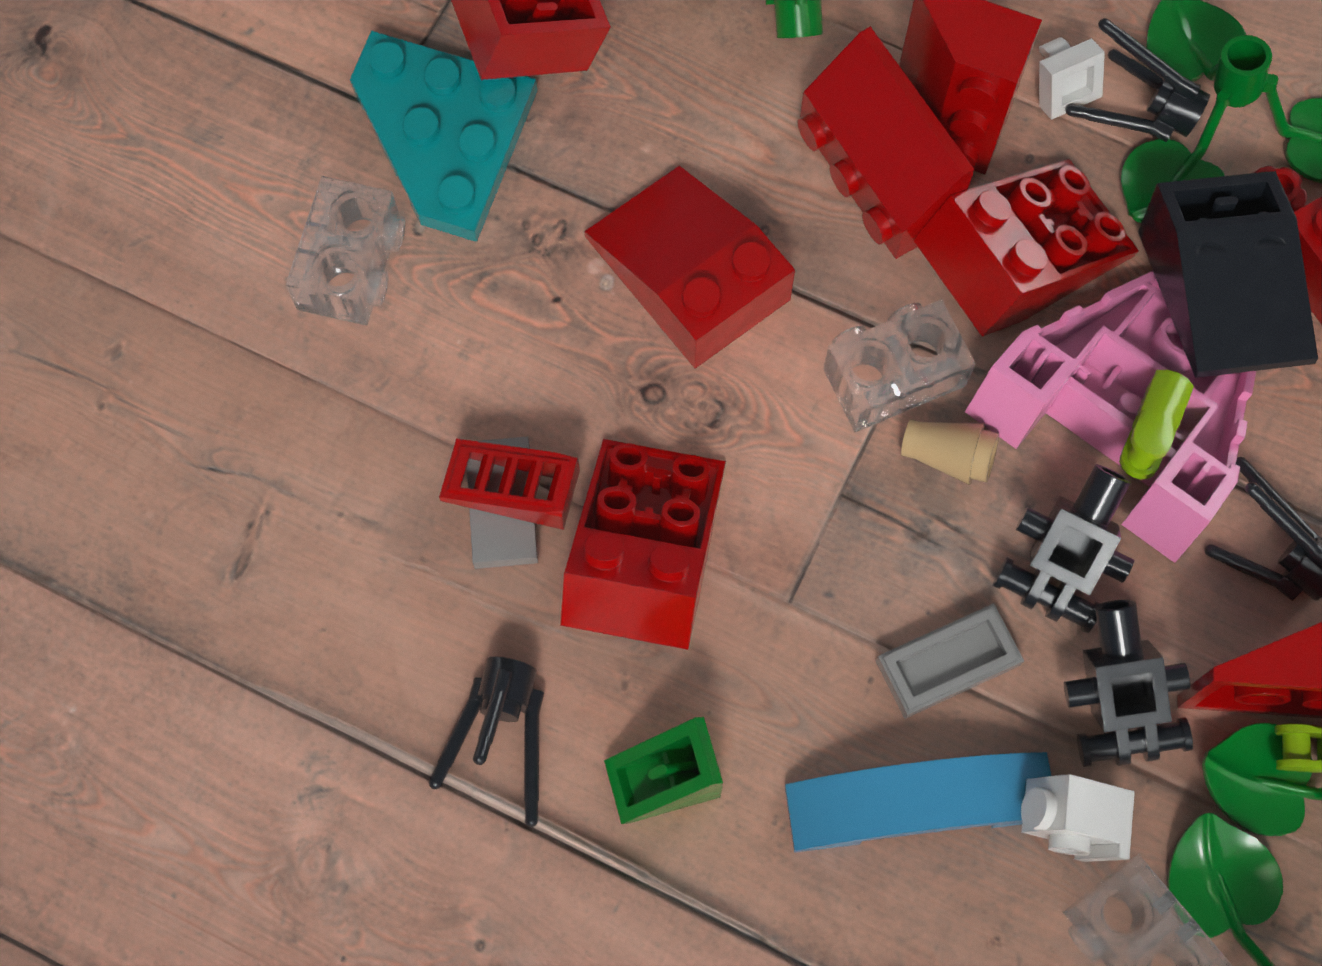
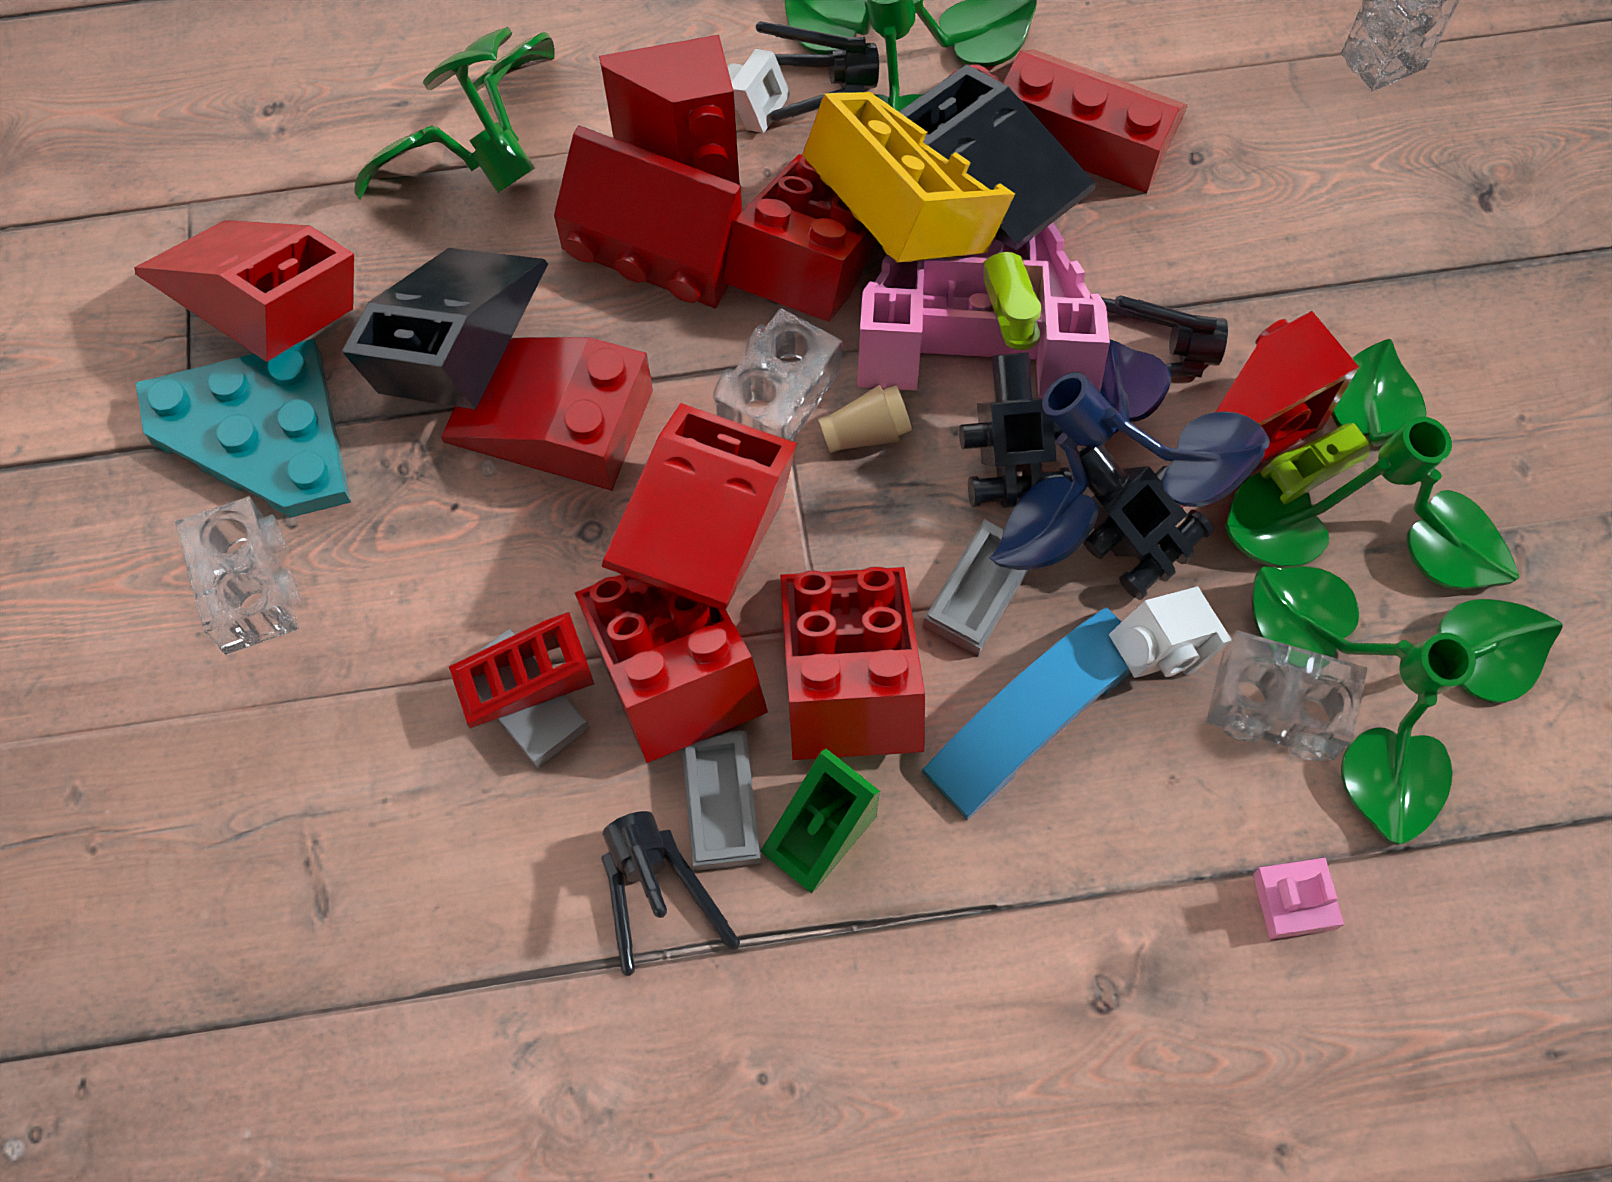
camera: 35 degrees left, 5 degrees down
(600, 698) = (720, 802): none -> light grey tile
(649, 135) = (444, 326): none -> black slope
(749, 437) = (701, 506): none -> red slope
(786, 652) = (852, 663): none -> red slope
(1124, 254) = (898, 184): none -> yellow wedge
(1207, 696) = (1207, 465): none -> dark blue plant

